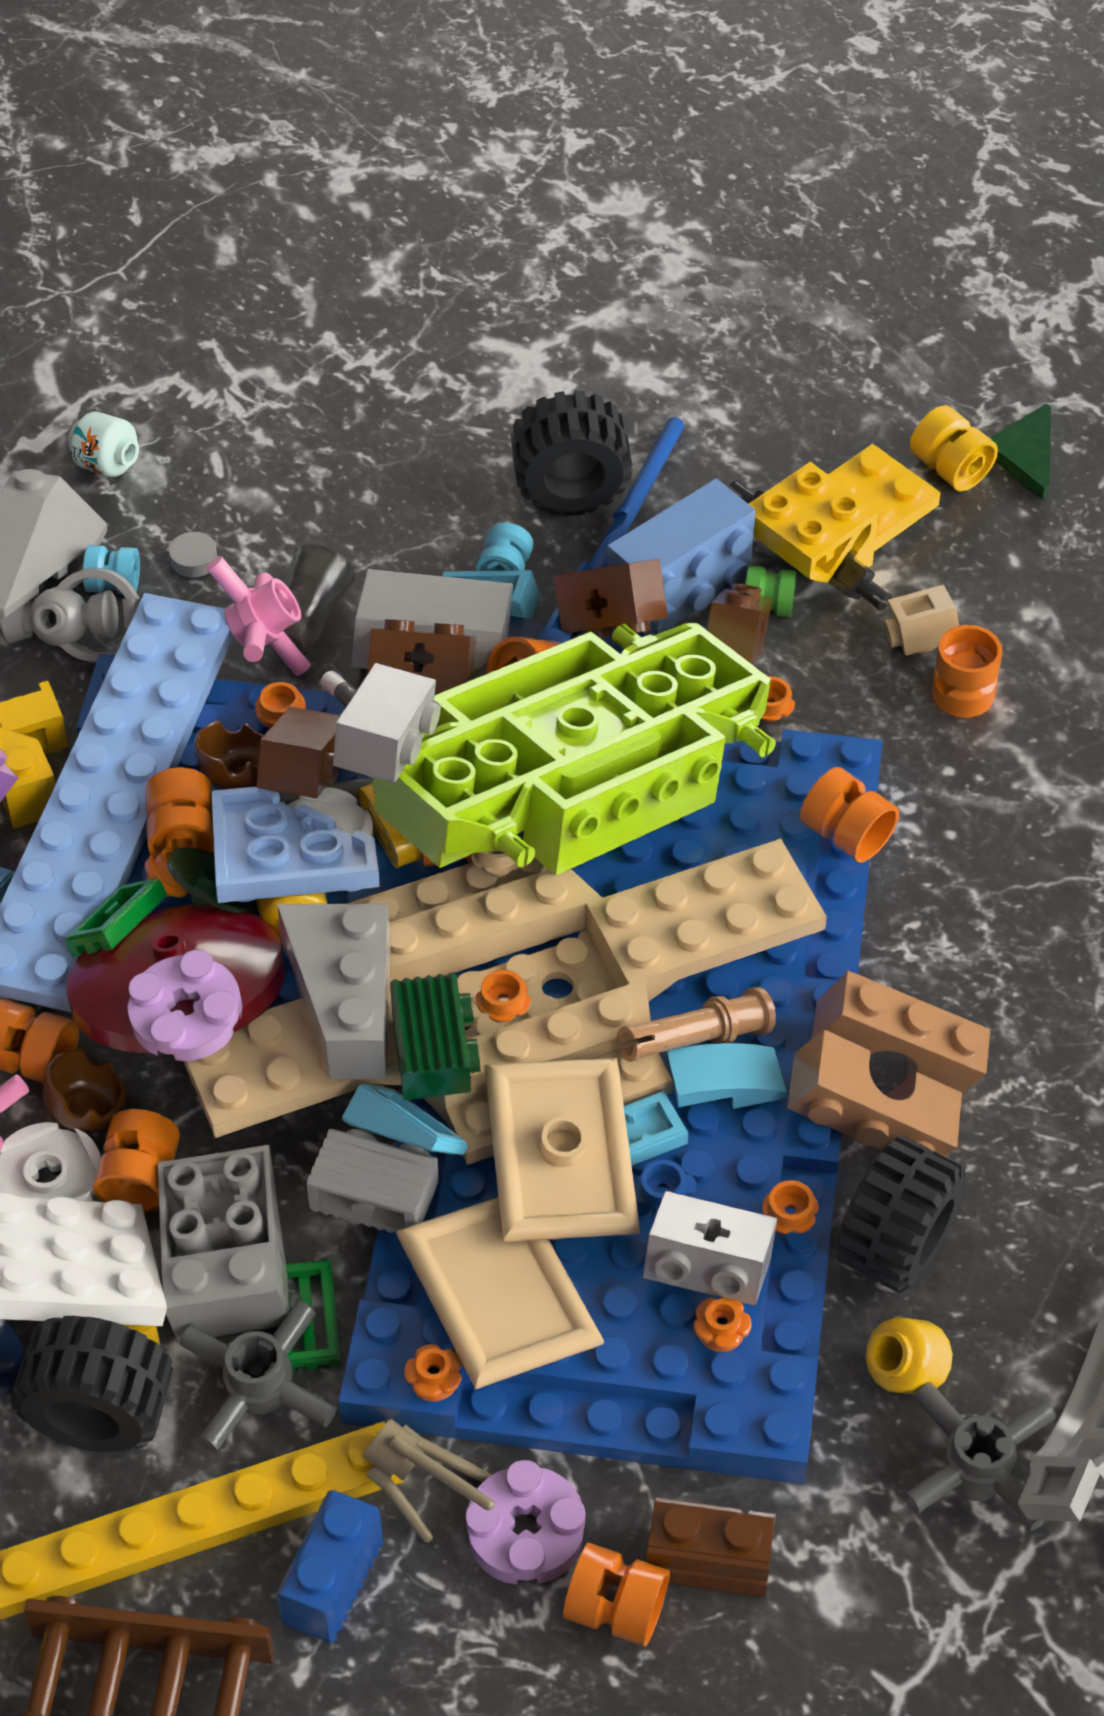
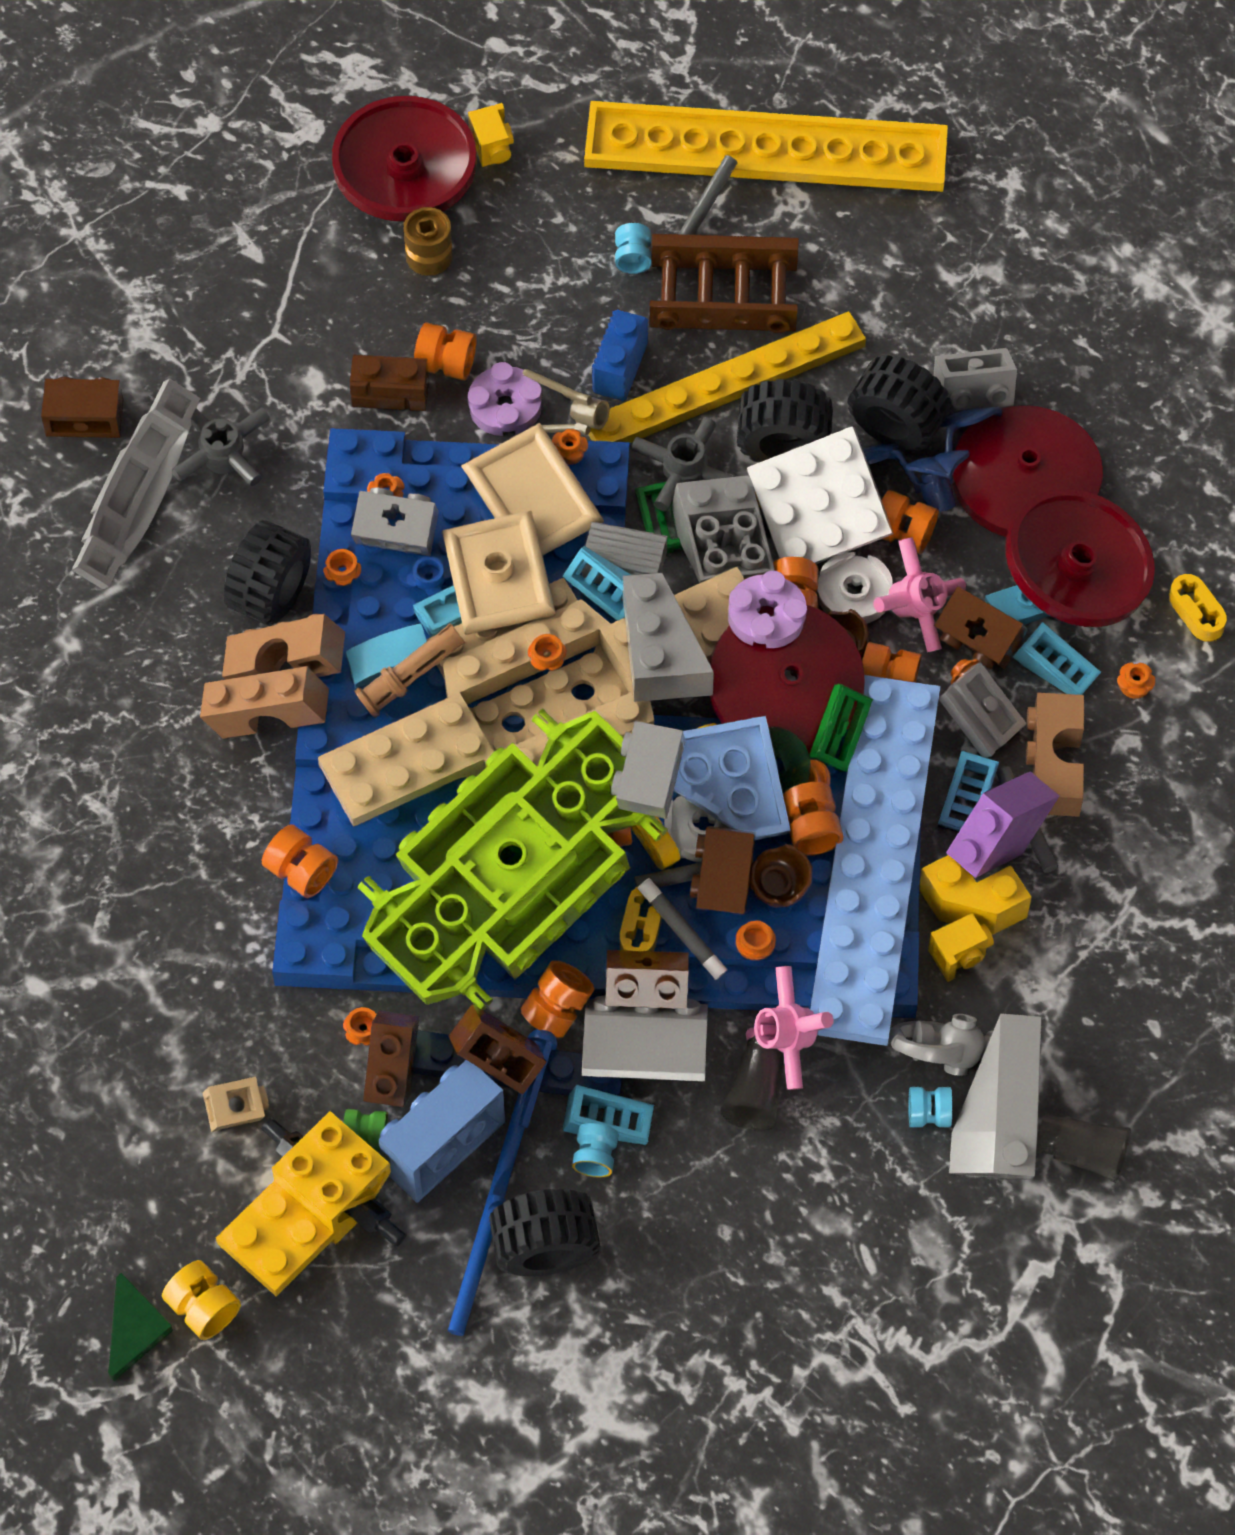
camera: 175 degrees right, 10 degrees up
(103, 444) = (969, 1243): light aqua head -> none
(192, 553) = (866, 1143): light grey tile -> none
(431, 1036) = (593, 611): dark green brick -> none
(908, 1355) = (264, 498): yellow head -> none
(966, 671) = (201, 1049): orange wheel -> none

